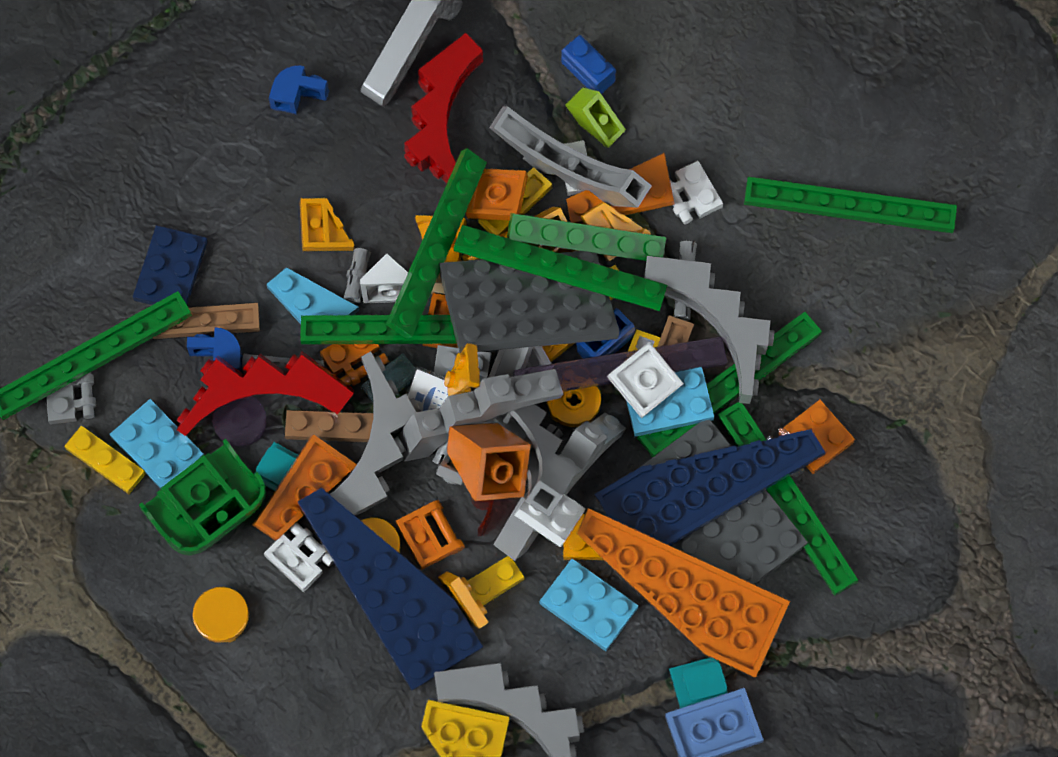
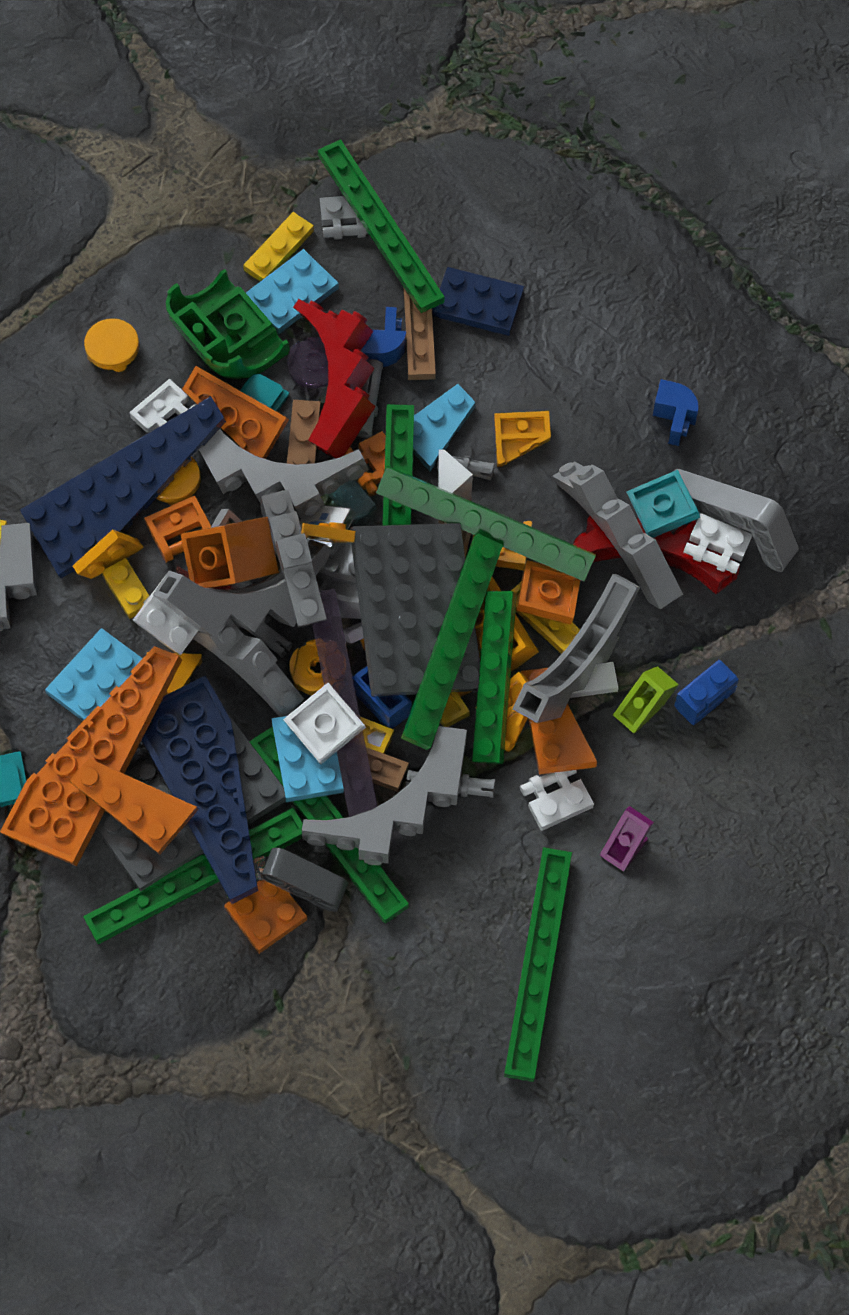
camera: 90 degrees right, 5 degrees down
(407, 93) = (663, 504): none -> teal plate
(431, 128) = (616, 519): none -> light grey arch
(439, 46) = (720, 538): none -> white plate
(732, 131) = (627, 838): none -> magenta slope
(736, 542) = (137, 806): none -> orange wing
(790, 398) = (304, 879): none -> dark grey beam

